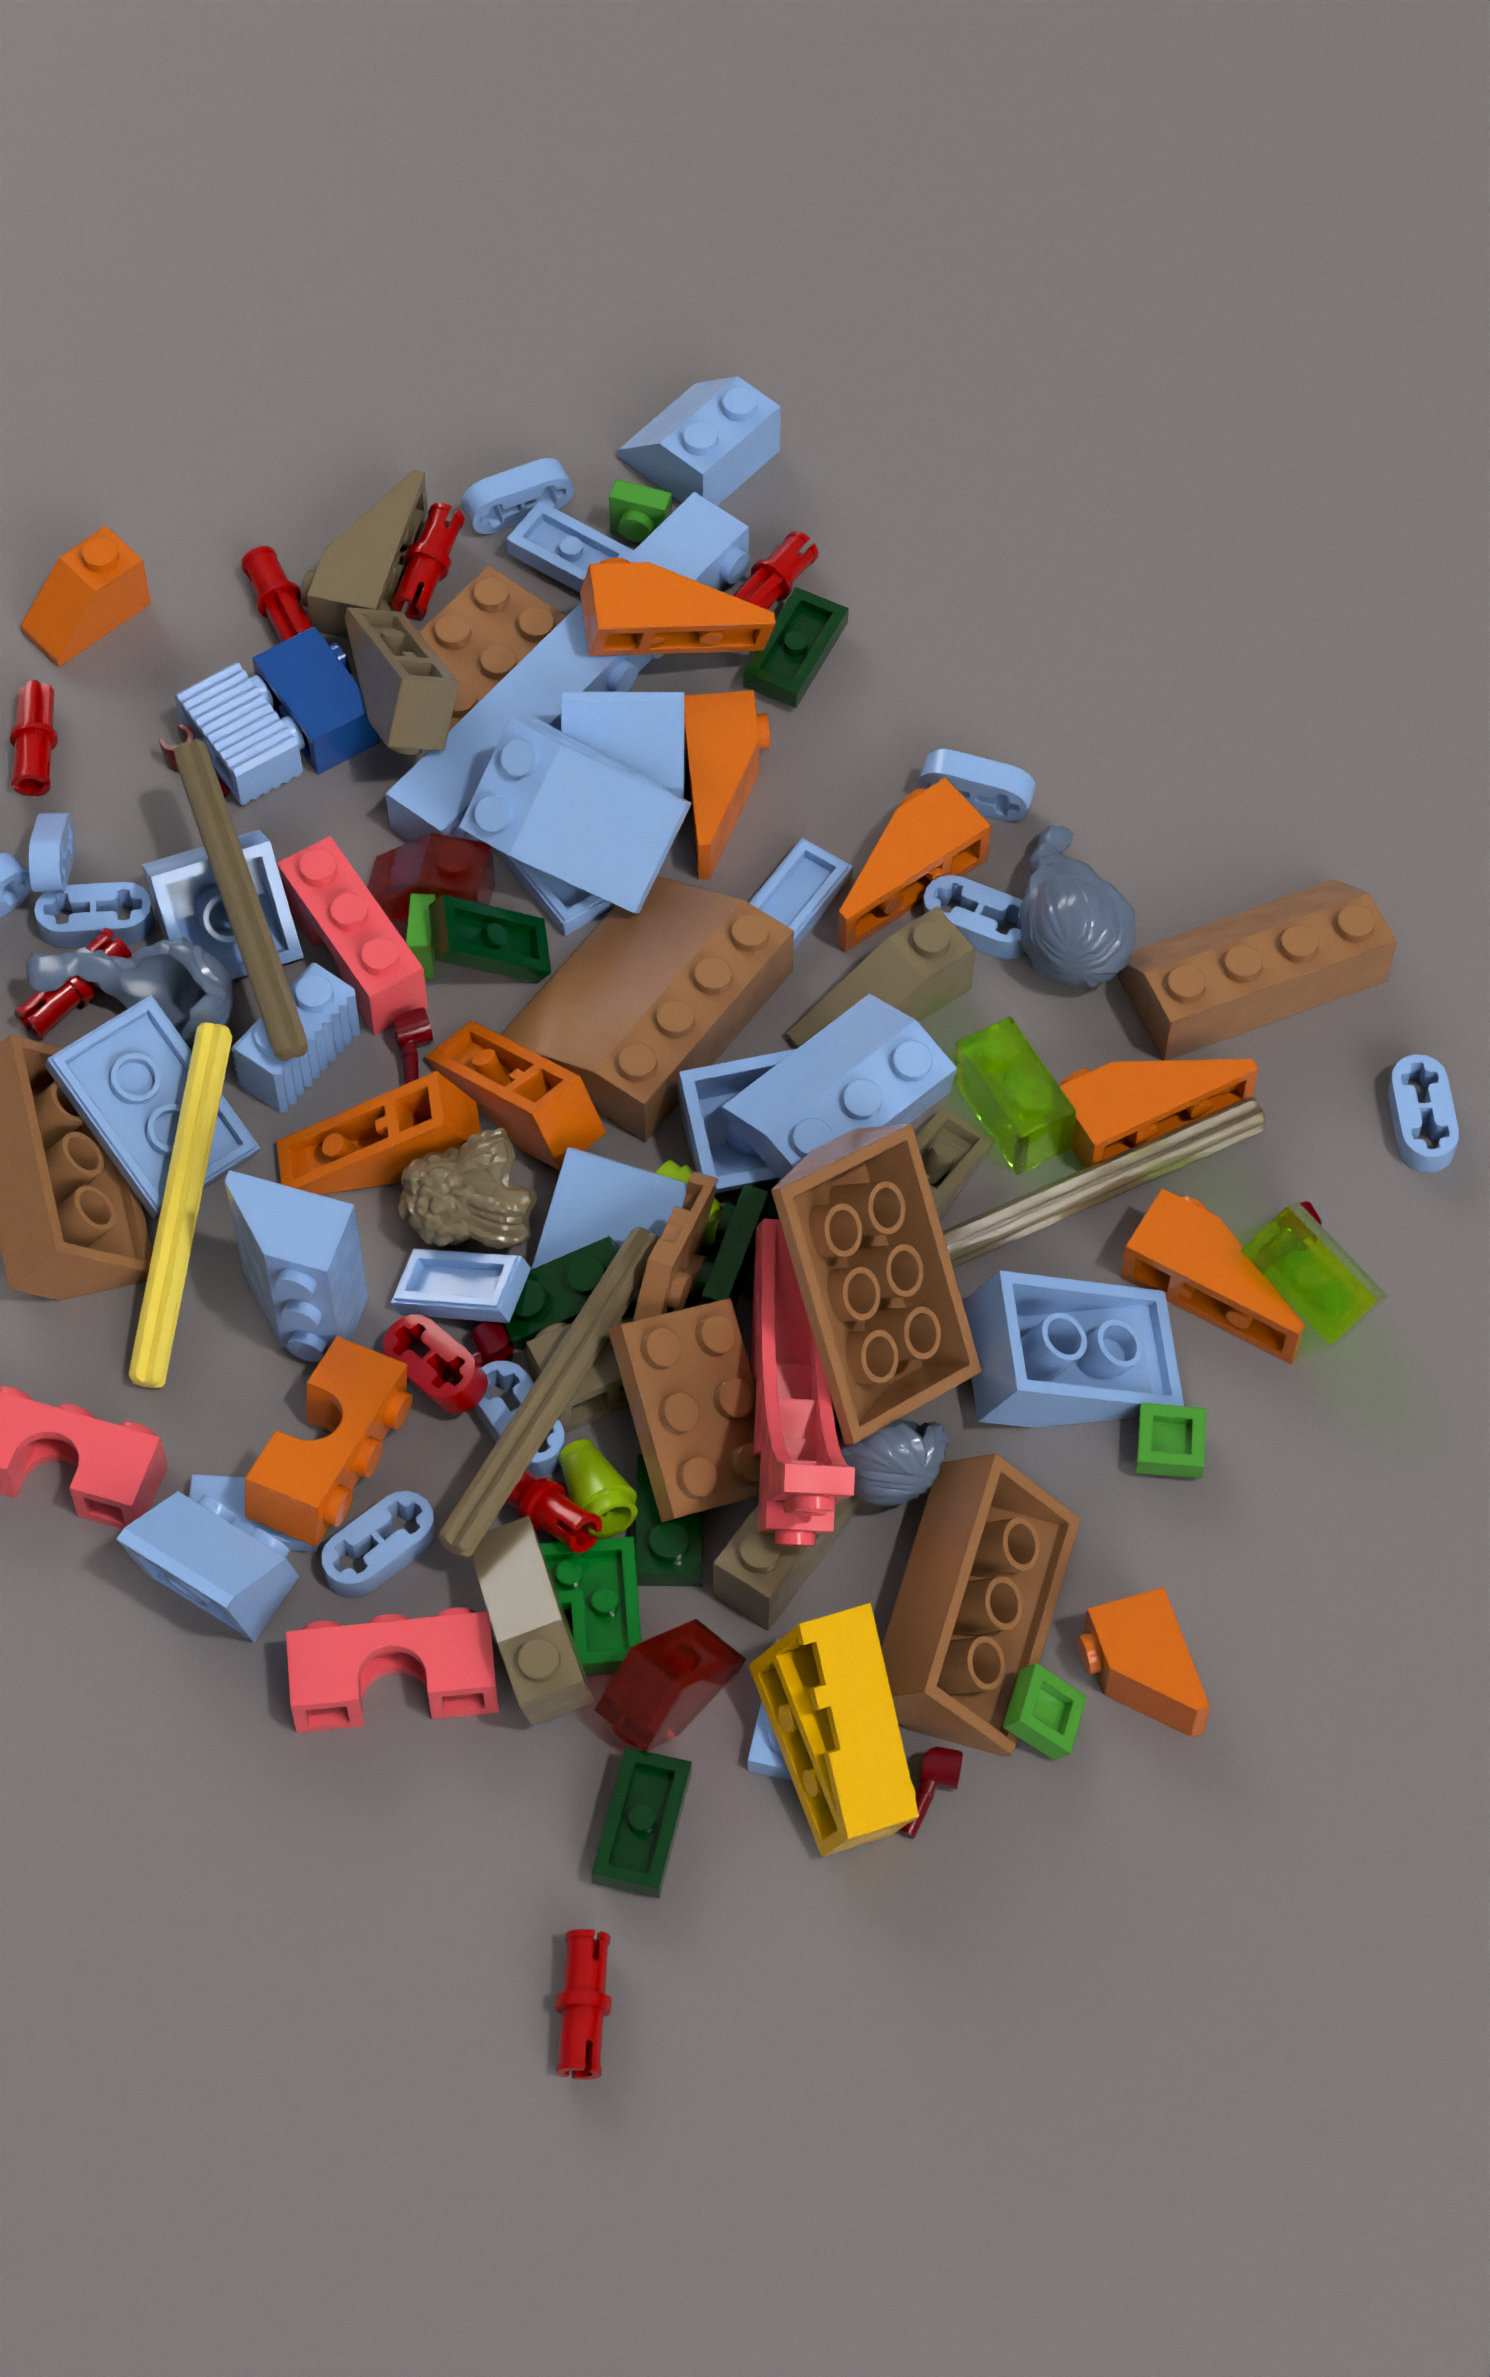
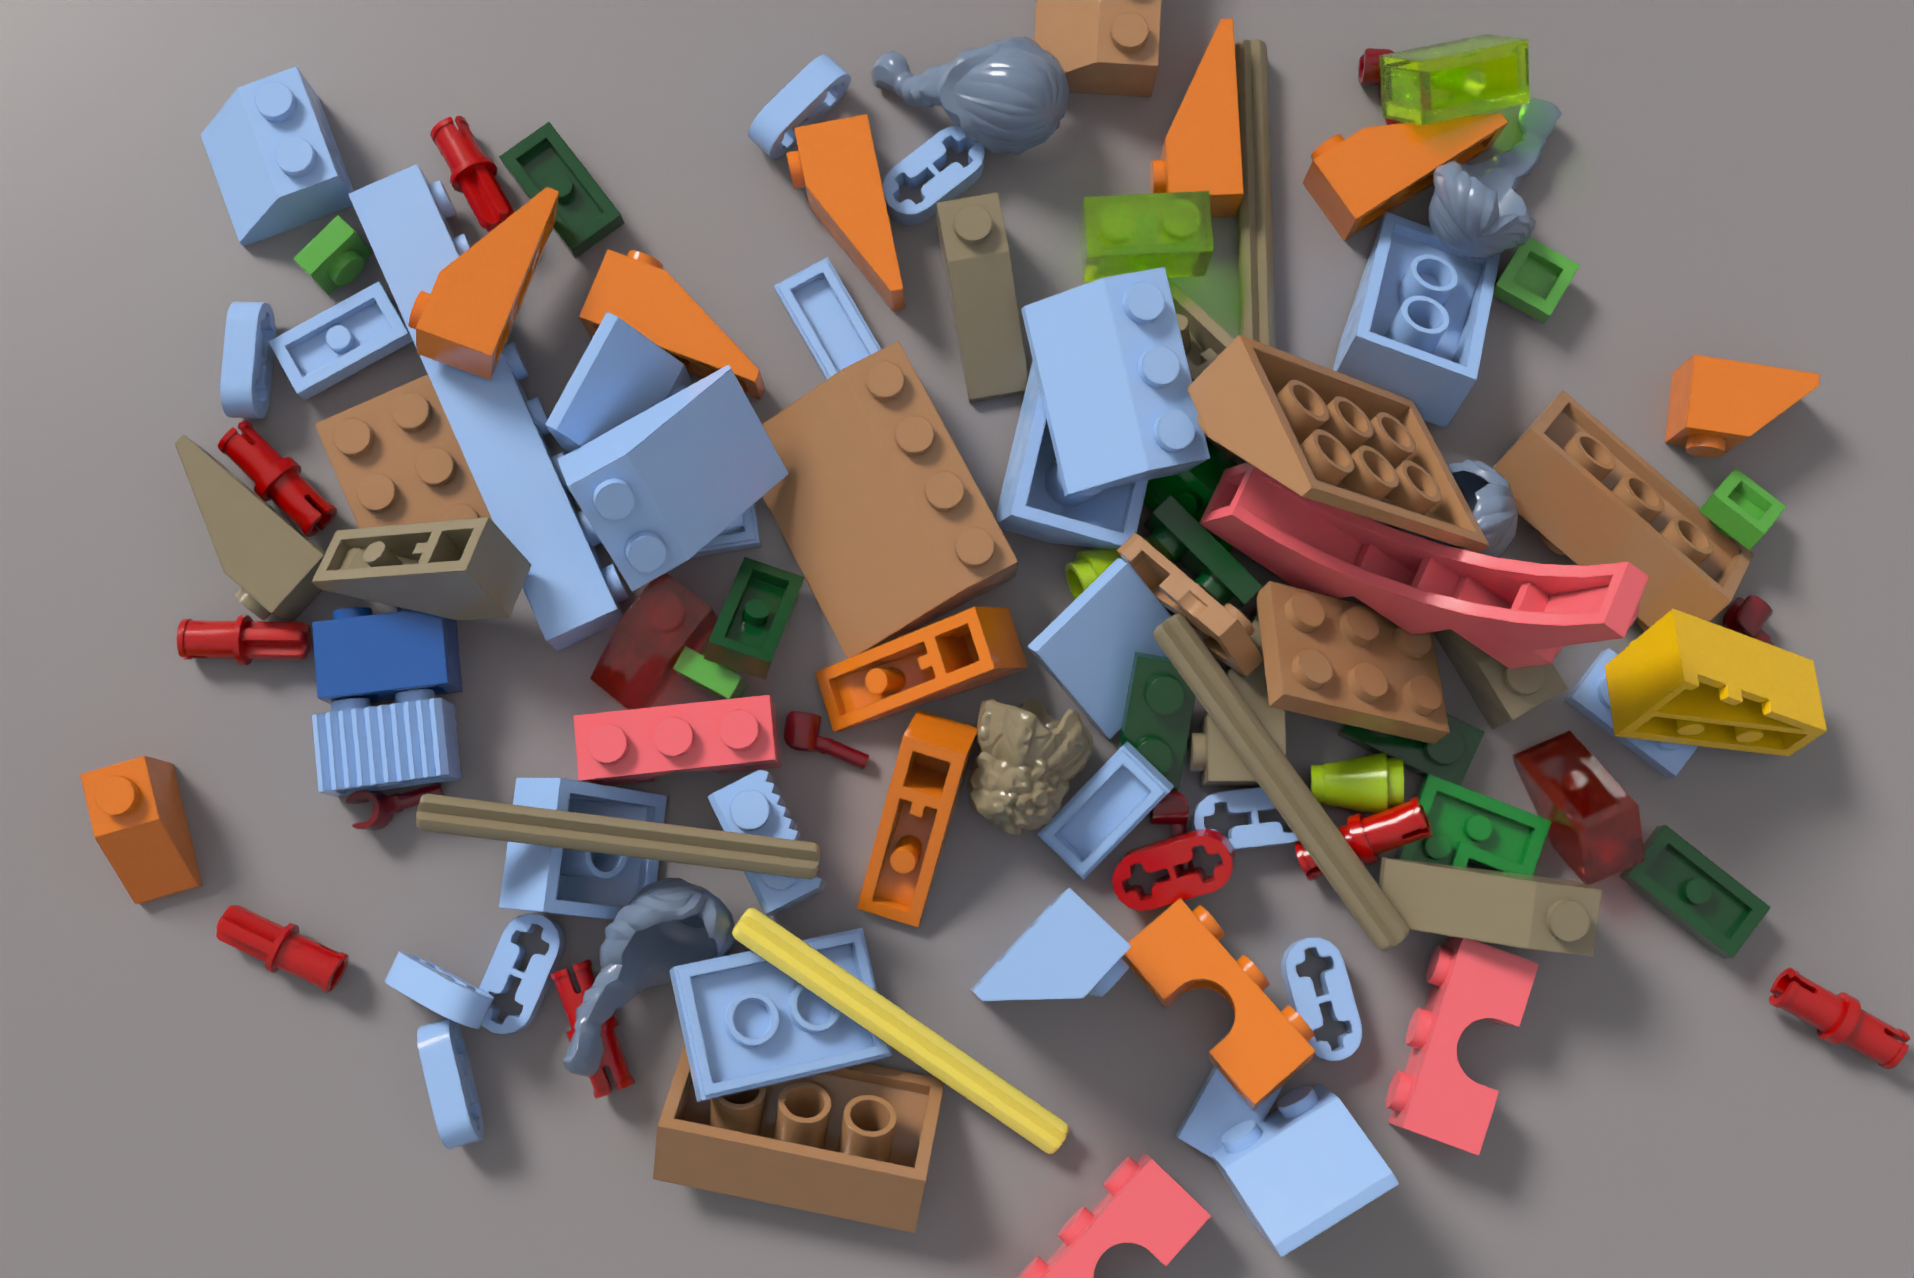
camera: 65 degrees left, 20 degrees up
(1209, 1357) = (1478, 204): none -> sand blue hair

